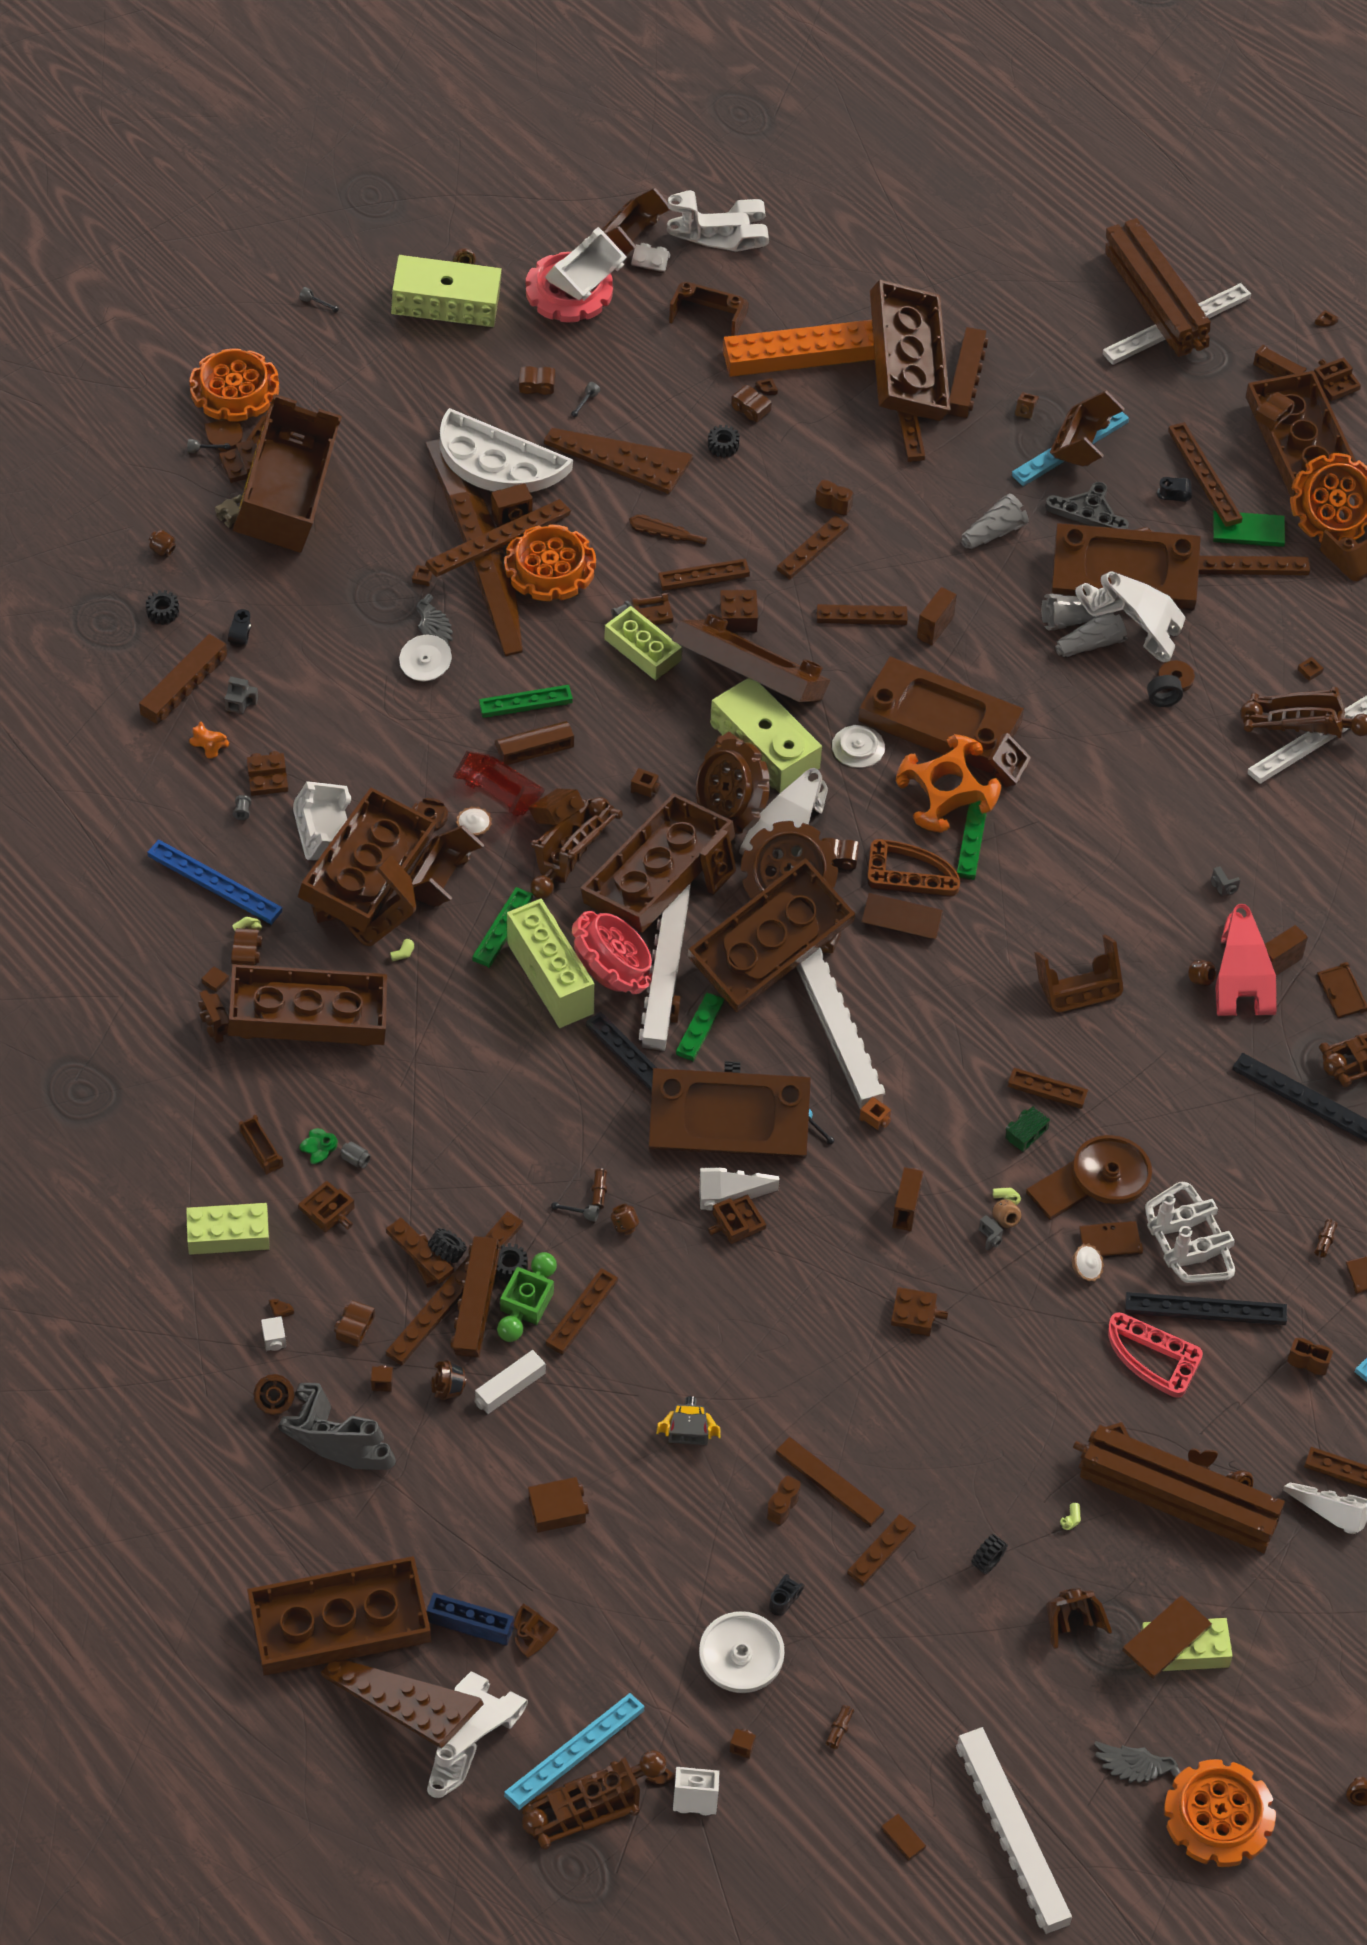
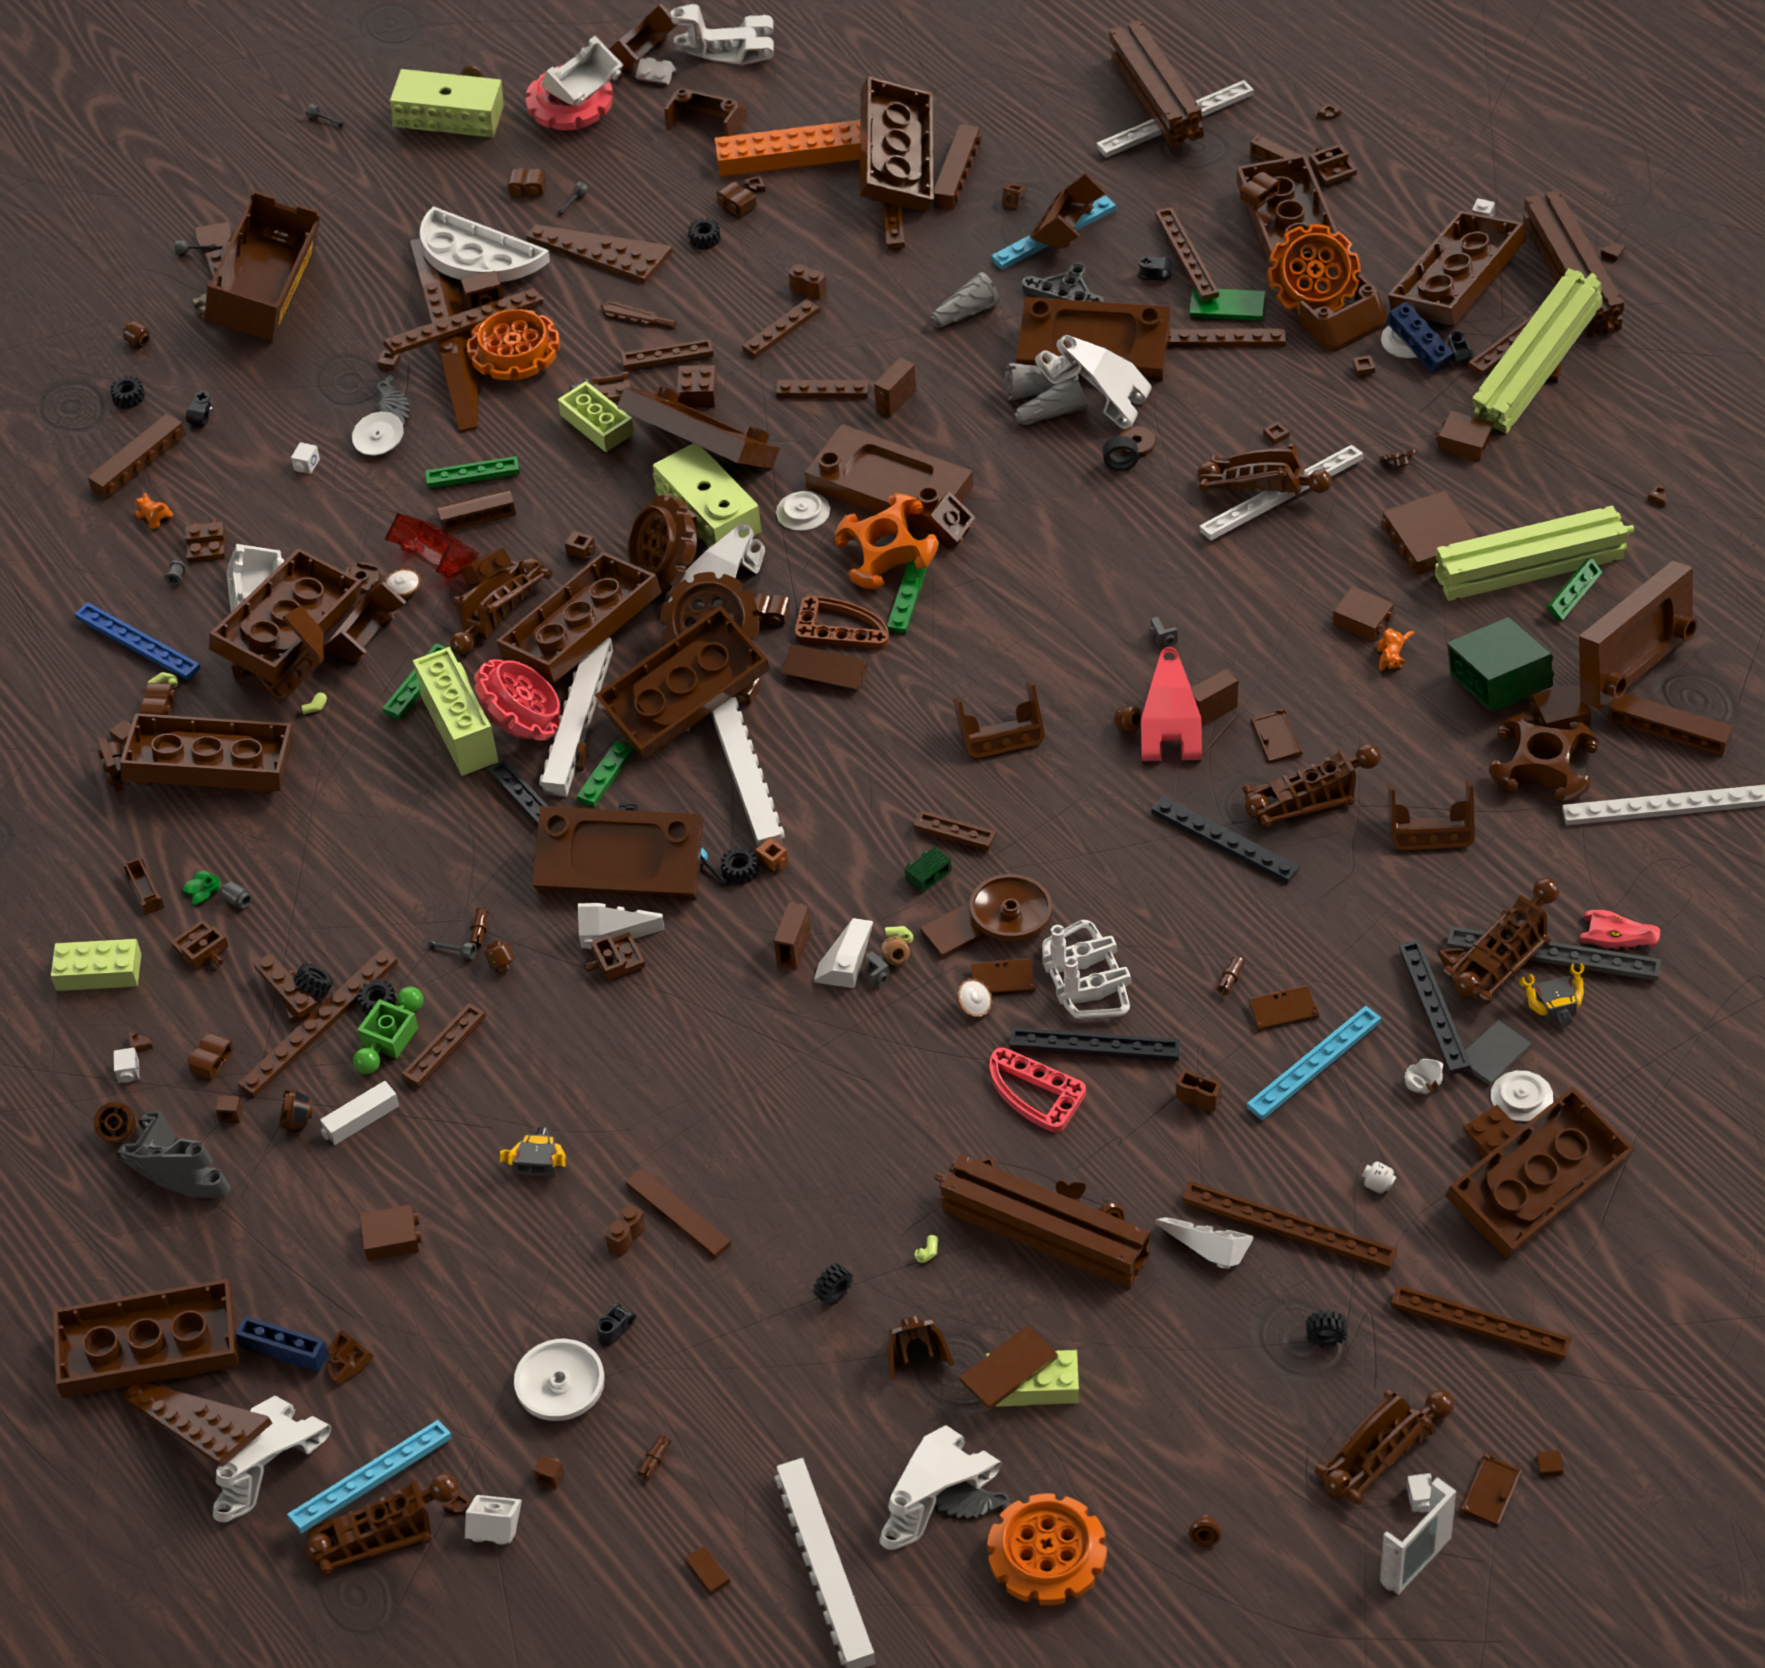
camera: 10 degrees right, 5 degrees down
(234, 384) = (224, 189): orange piece -> none
(240, 695) = (189, 469): dark grey brick -> none
(355, 683) = (305, 458): none -> white brick
(476, 1296) = (335, 1029): reddish brown brick -> none
(717, 861) = (639, 615): reddish brown plate -> none
(844, 1133) = (739, 874): none -> black tyre
(881, 1549) = (723, 1281): reddish brown plate -> none
(916, 1311) = (789, 1045): reddish brown plate -> none
(956, 1220) = (845, 957): none -> white wedge
(1108, 1742) = (932, 1469): none -> white piece

